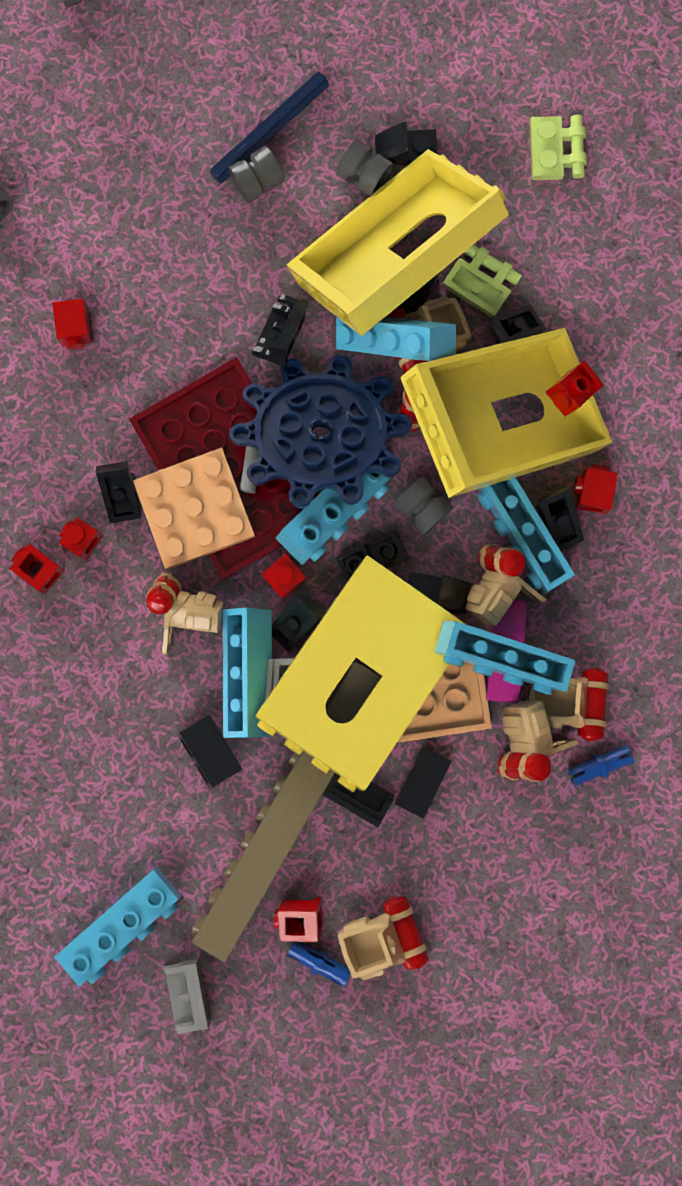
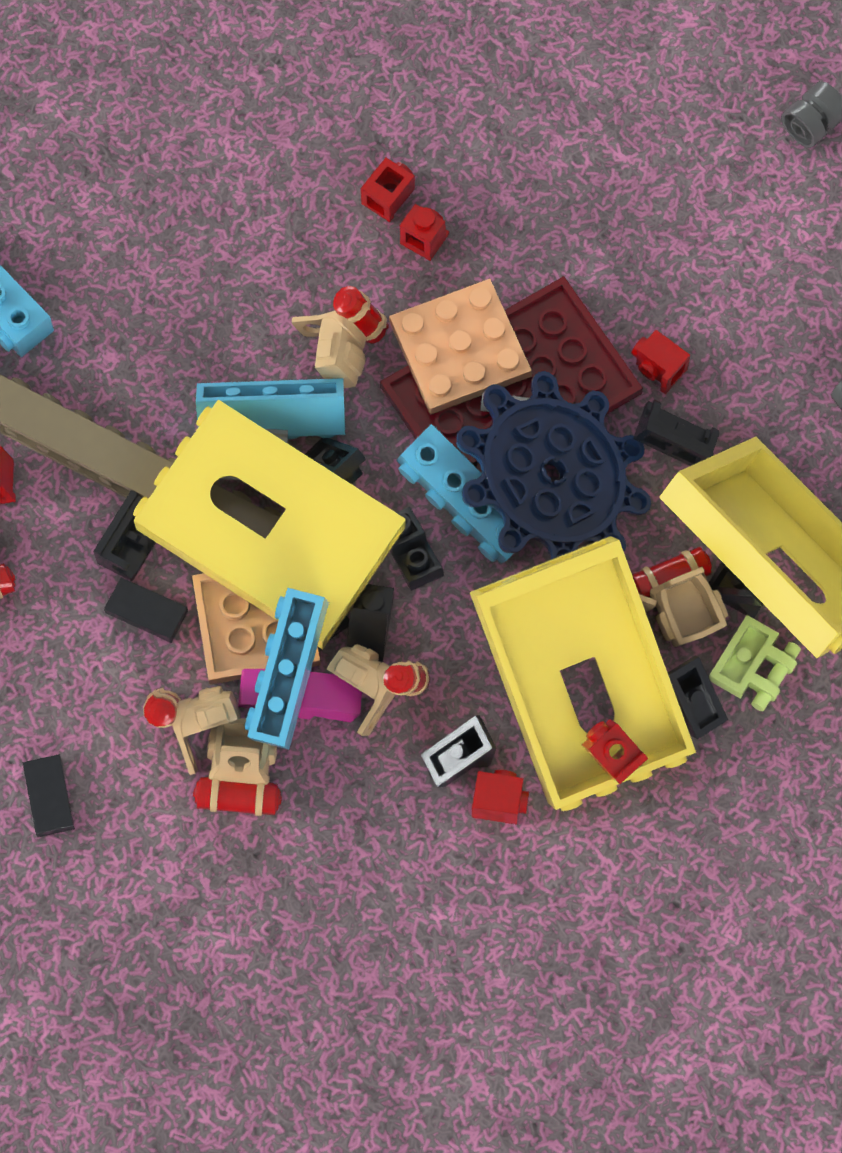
camera: 90 degrees right, 15 degrees down
(72, 323) = (673, 214): red brick -> none
(118, 492) = (478, 264): black slope -> none
(209, 751) = (180, 374): black hinge -> none
(210, 341) = (661, 360): none -> red brick
(284, 577) = (382, 446): red brick -> none
(400, 339) = (661, 551): medium azure brick -> none
(423, 505) = (456, 598): dark grey wheel -> none
(526, 533) = (438, 713): medium azure brick -> none
(586, 864) = (48, 795): none -> black tile
(600, 765) = (164, 809): blue pin -> none

